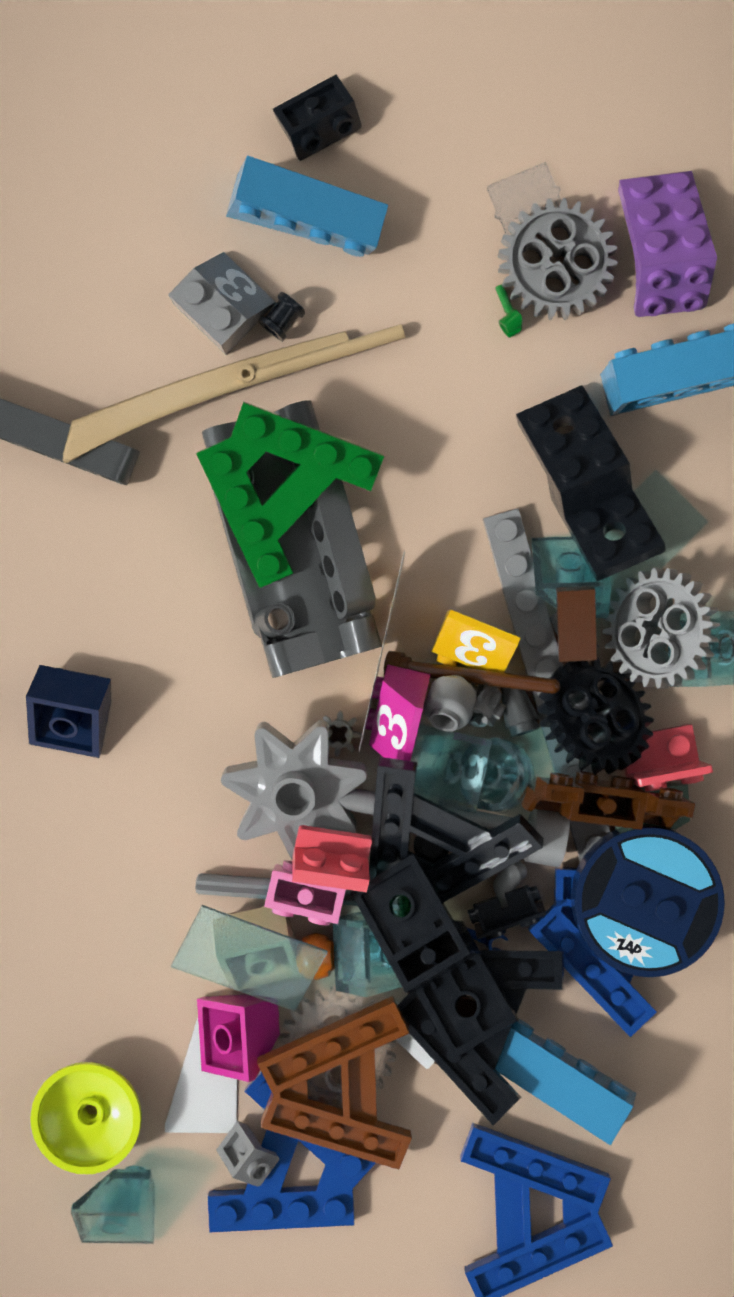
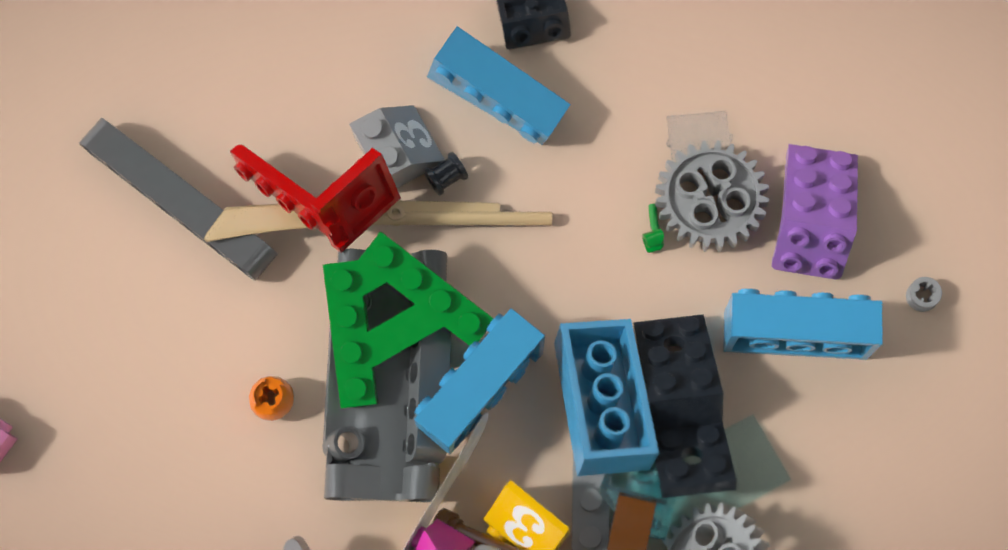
camera: 25 degrees right, 15 degrees down
(68, 710) = (123, 470): dark blue slope -> none
(198, 385) = (342, 209): none -> red bracket
(200, 597) = (258, 396): none -> orange piece
(389, 520) = (479, 380): none -> dark azure wedge
(513, 499) = (605, 397): none -> dark azure brick

